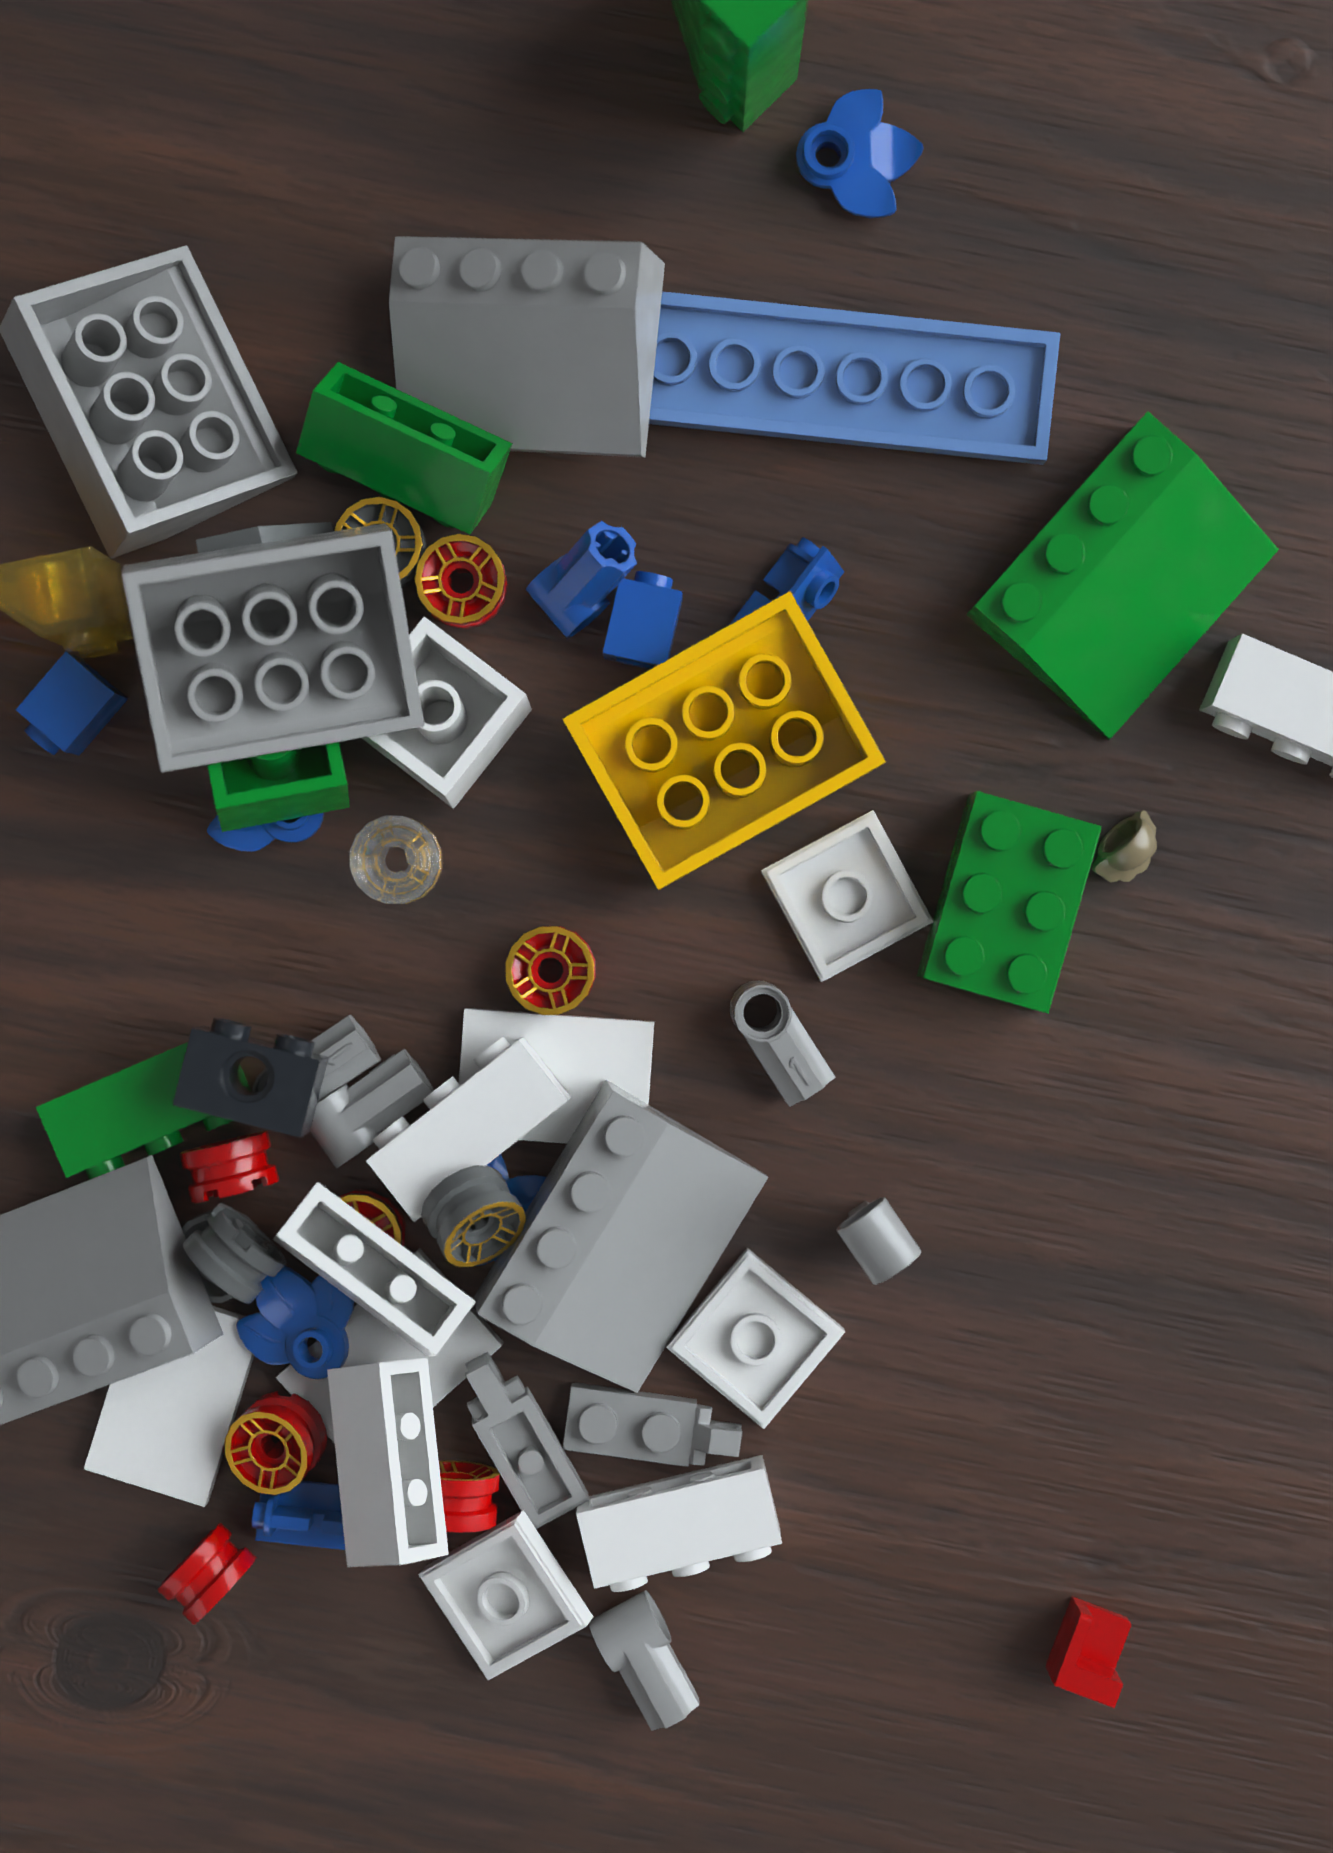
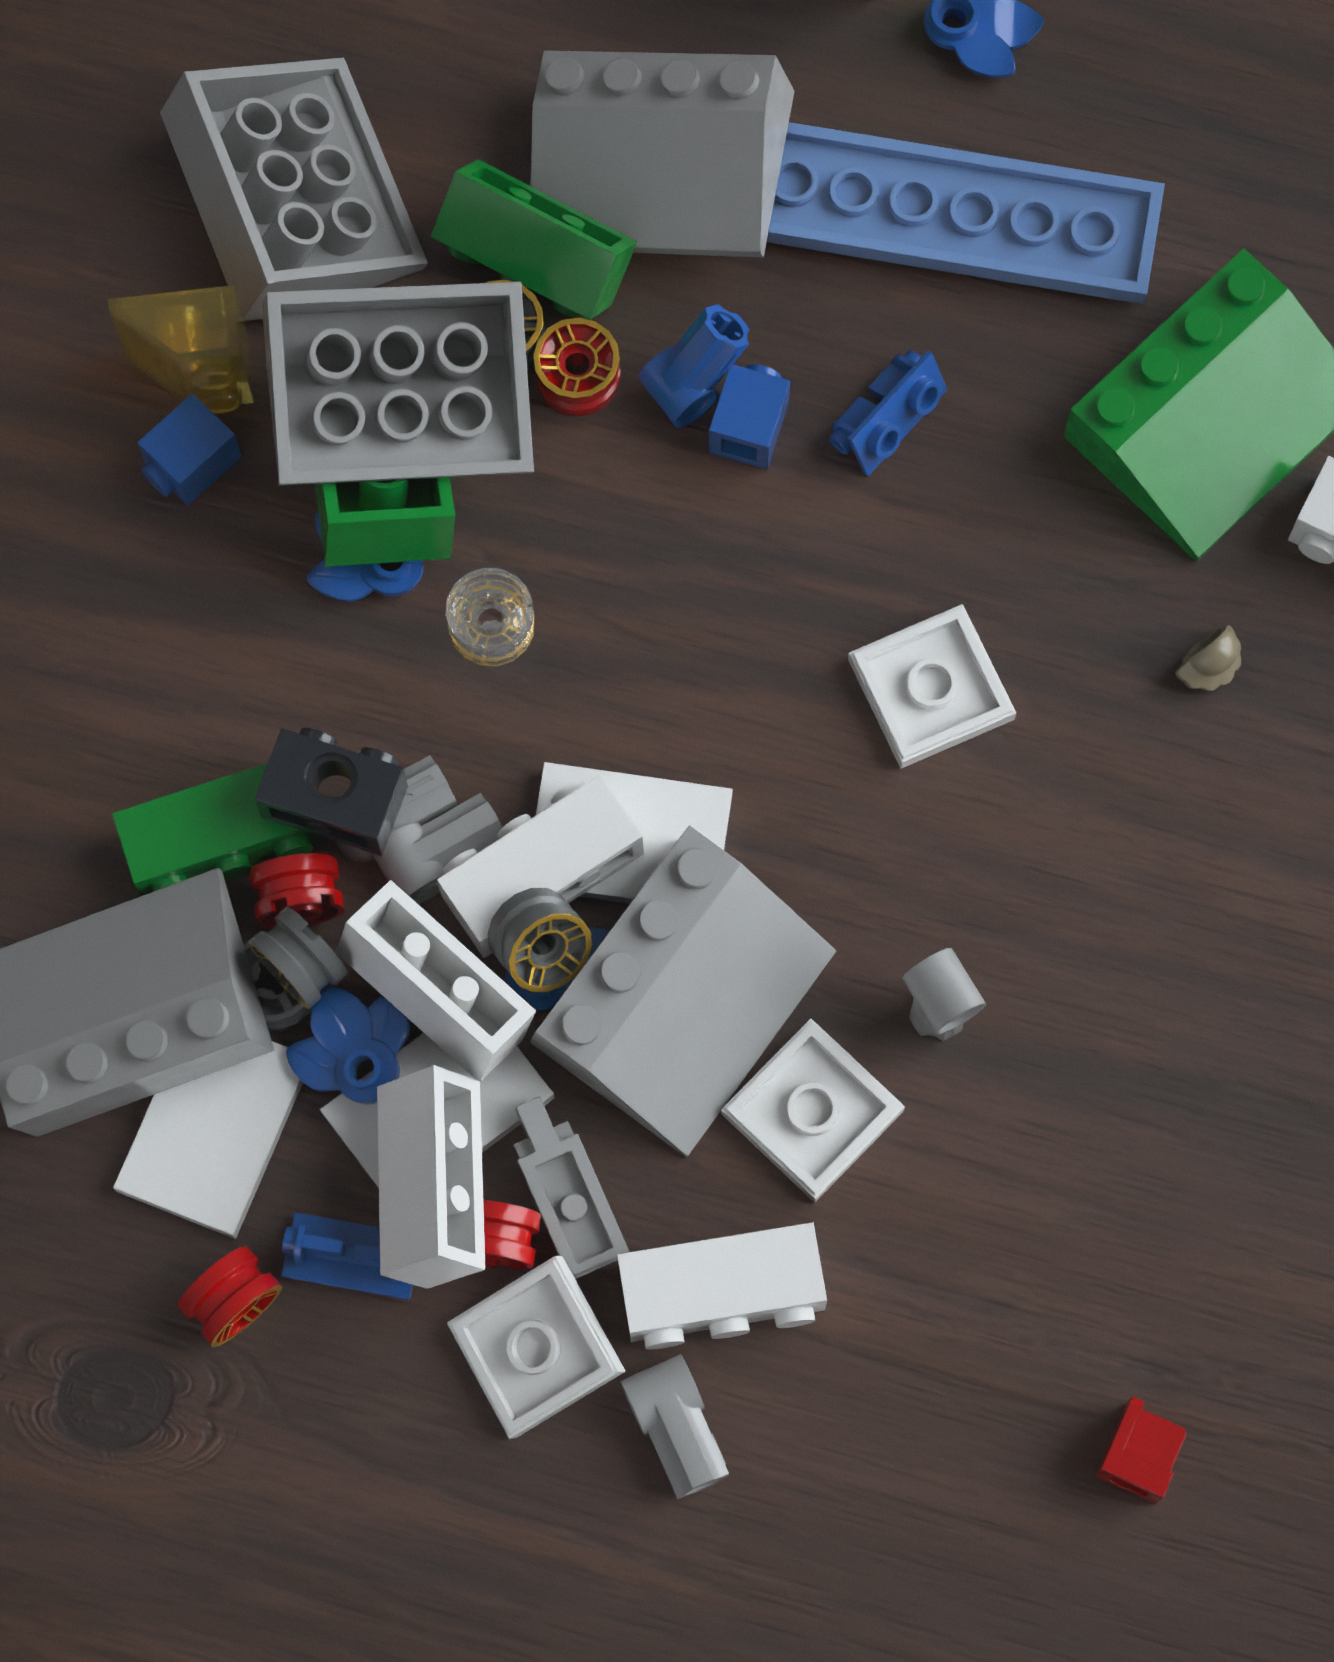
camera: 10 degrees right, 15 degrees down
(280, 1465) = (293, 1156): red wheel -> none
(465, 715) = (573, 489): white brick -> none
(524, 969) = (643, 708): wheel -> none
(646, 1426) = (693, 1190): light grey hinge -> none
(724, 740) = (822, 523): yellow slope -> none
(782, 1045) = (857, 817): light grey piece -> none
(1009, 901) = (1090, 694): green brick -> none

